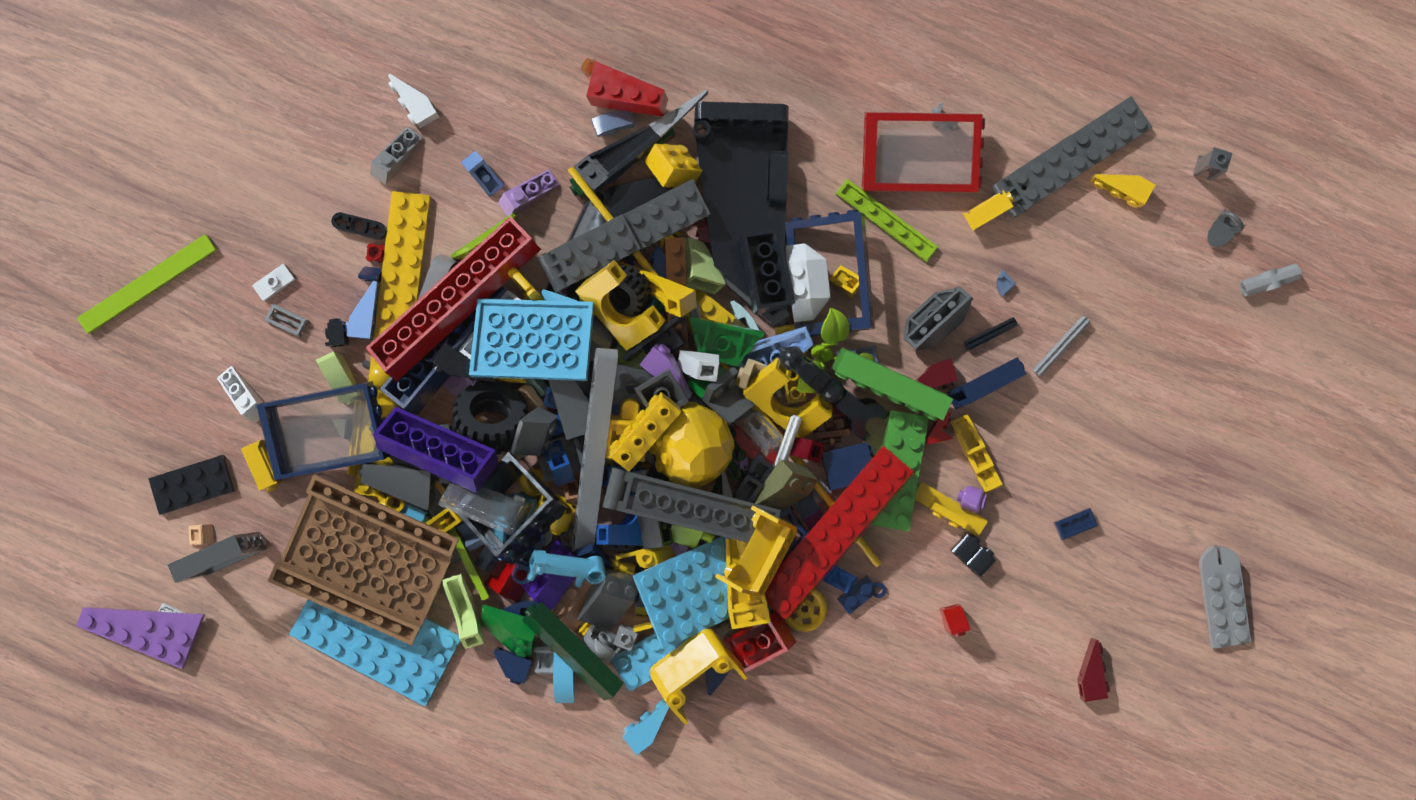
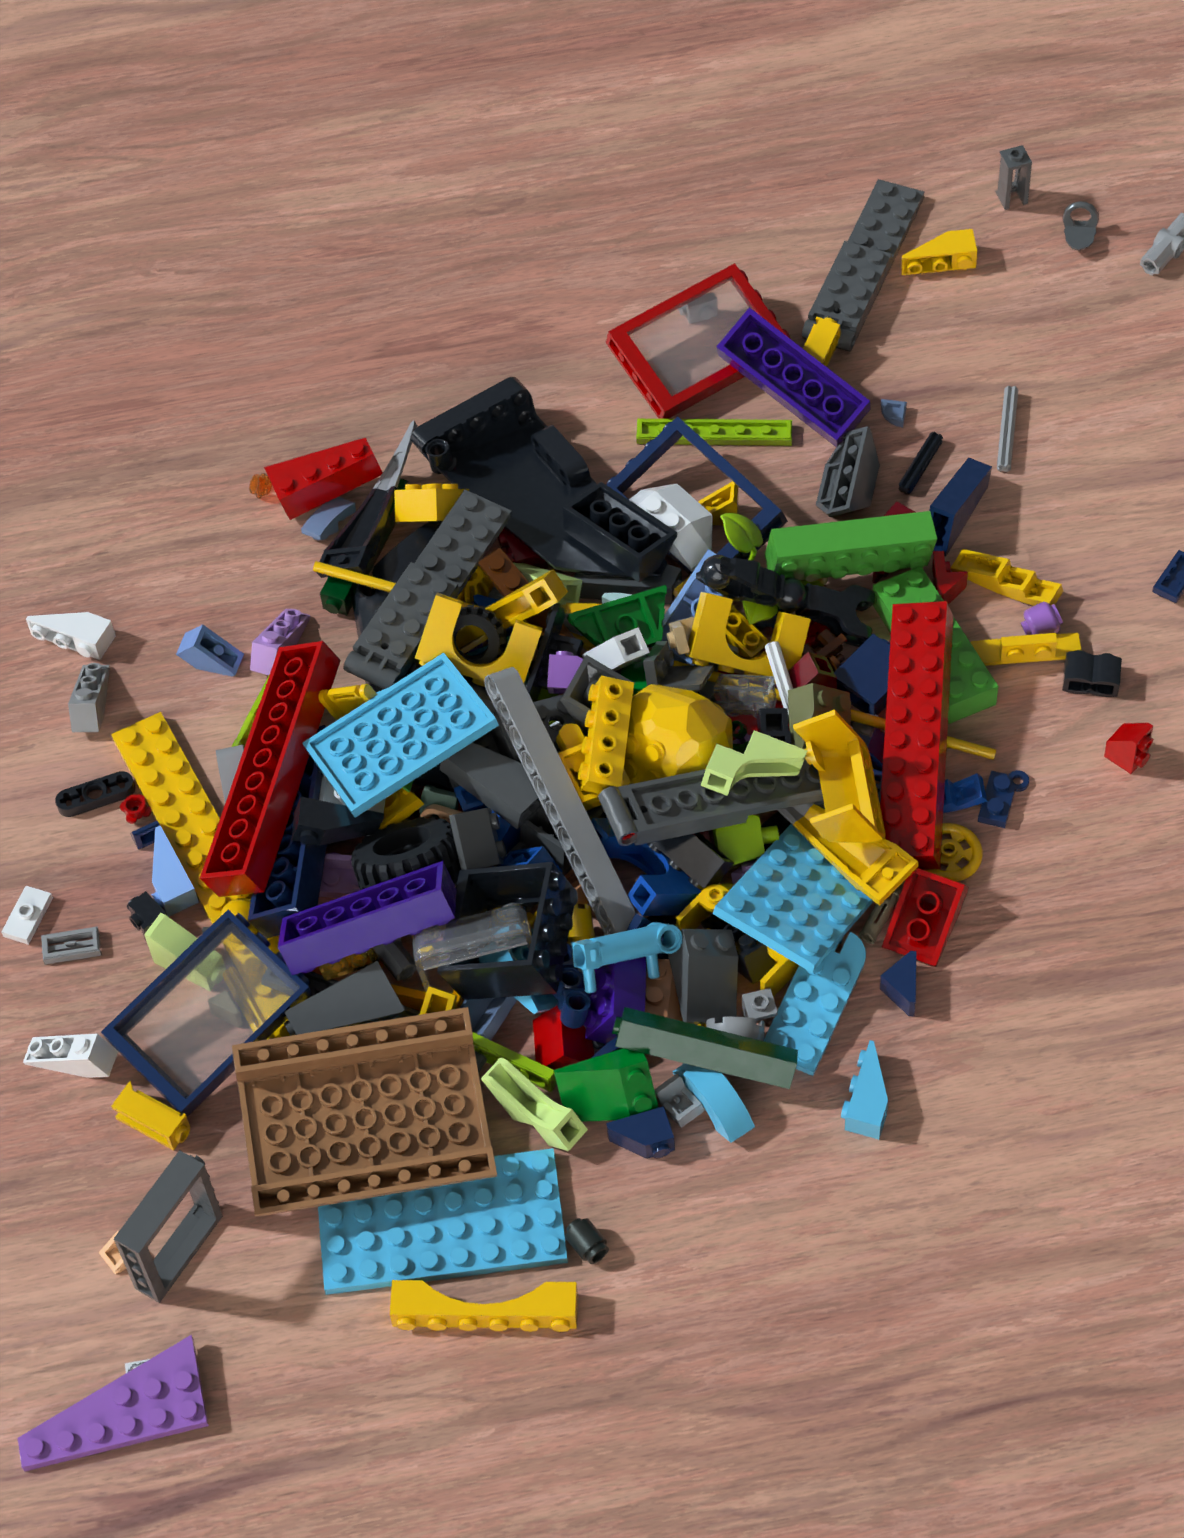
camera: 30 degrees left, 30 degrees down
(191, 484) = (70, 1201): black plate -> none
(332, 681) = (548, 1306): none -> yellow arch
(441, 704) = (586, 1240): none -> pearl dark grey brick
(490, 563) = (526, 1032): black brick -> none
(688, 663) = (848, 993): yellow windscreen -> none
(725, 501) = (762, 758): none -> yellowish green arch
(955, 226) = (793, 377): none -> dark purple brick

